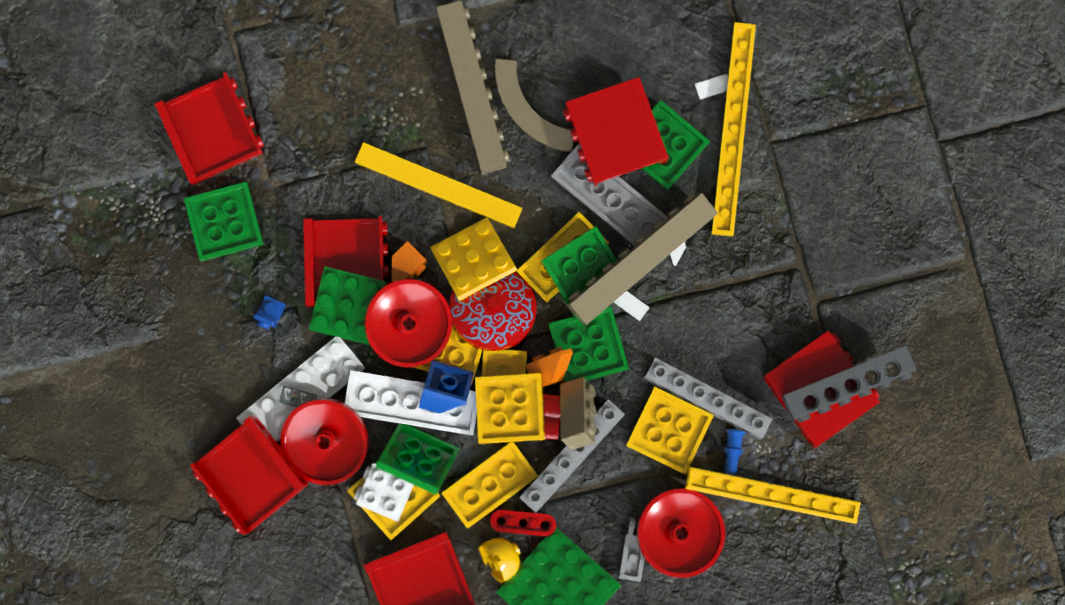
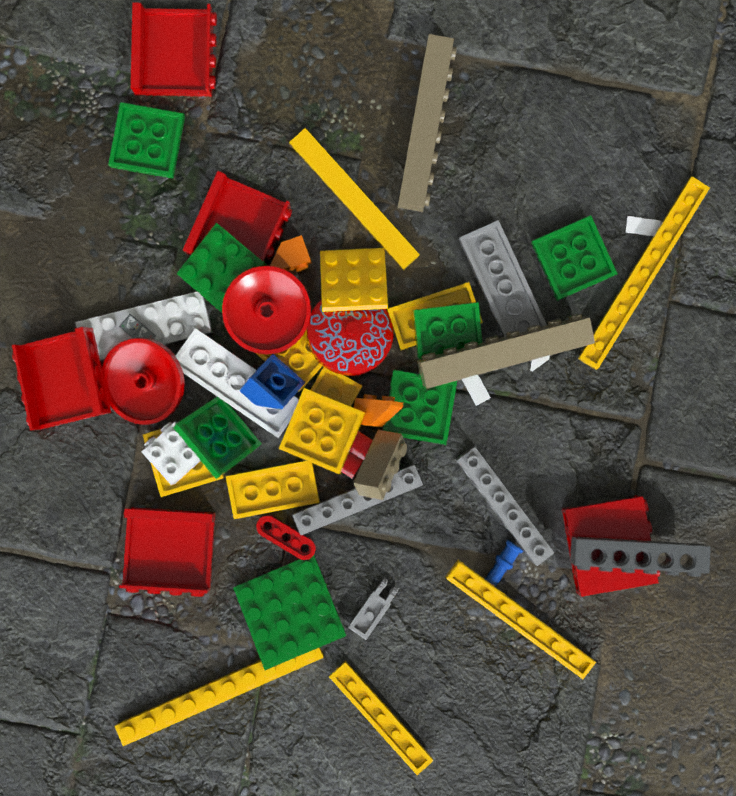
camera: 15 degrees right, 5 degrees up
(269, 313) = (149, 242): blue bracket -> none
(501, 557) = (251, 560): yellow cylinder -> none
(523, 114) = (461, 172): dark tan tile -> none
(615, 131) = (537, 223): red panel -> none
(669, 430) = (456, 517): yellow plate -> none
(681, 533) = (422, 615): red dish -> none

